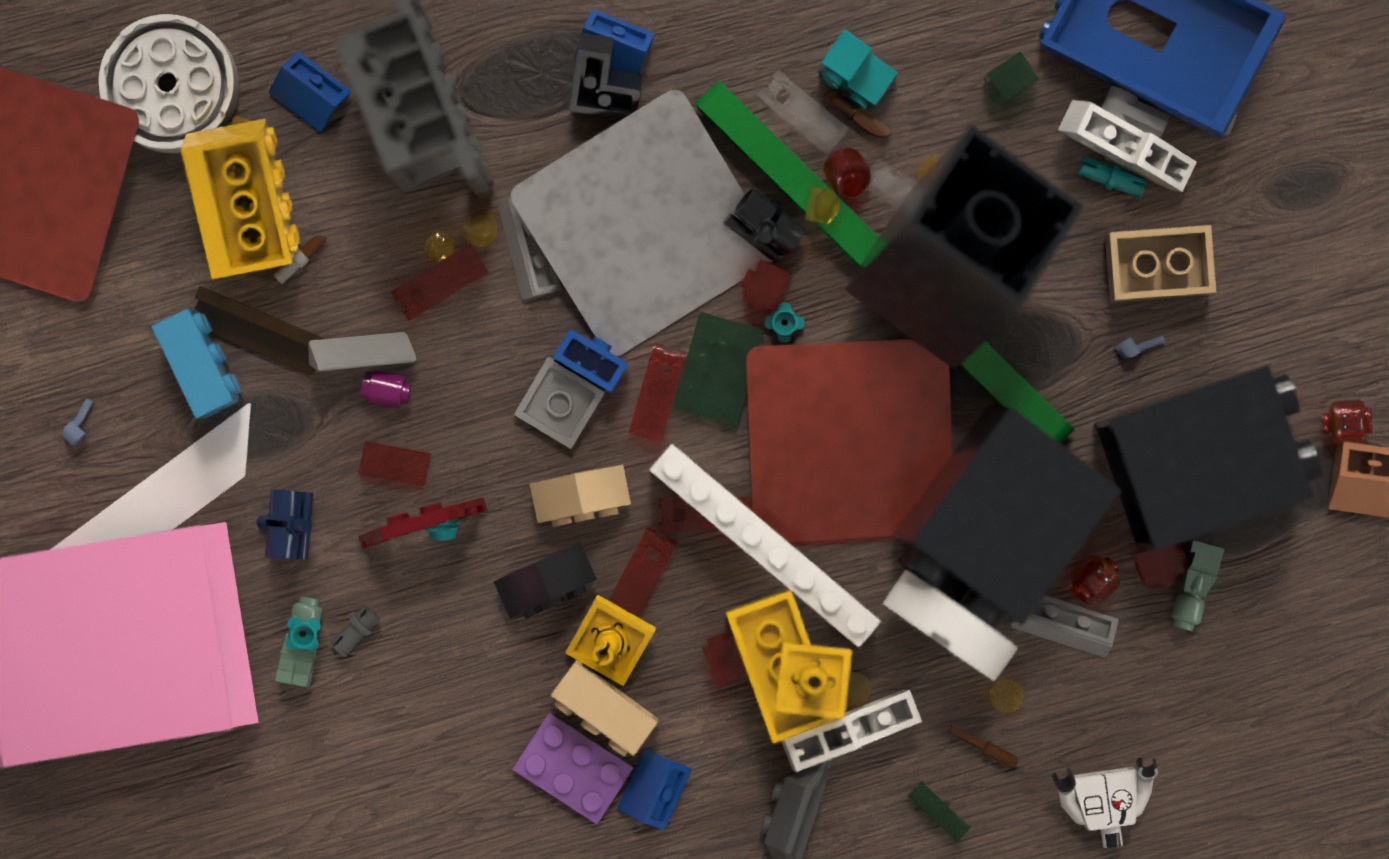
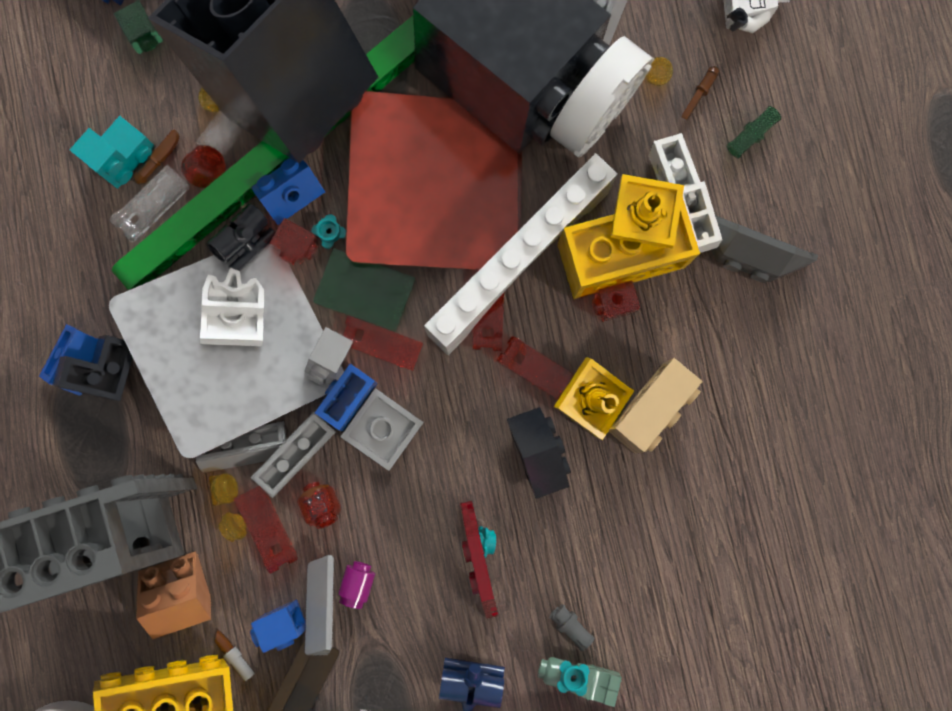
camera: 90 degrees left, 5 degrees down
(308, 91) = (81, 637): blue panel -> none
(335, 309) = (278, 627): none -> blue brick
(358, 189) = (172, 596): none -> nougat slope
(395, 463) = (424, 581): clear red plate -> none
(470, 340) = (319, 505): none -> clear red head
(524, 306) = (293, 454): none -> light grey slope
(573, 768) = (702, 440): medium lavender plate -> none
(580, 495) = (465, 416): tan brick -> none
(633, 337) = (327, 357): none -> light grey brick
(654, 789) = (725, 371): blue panel -> none
(678, 225) = (232, 311): none -> white plate
(822, 205) = (227, 186): clear yellow plate -> none
(823, 272) = (287, 189): none -> blue brick

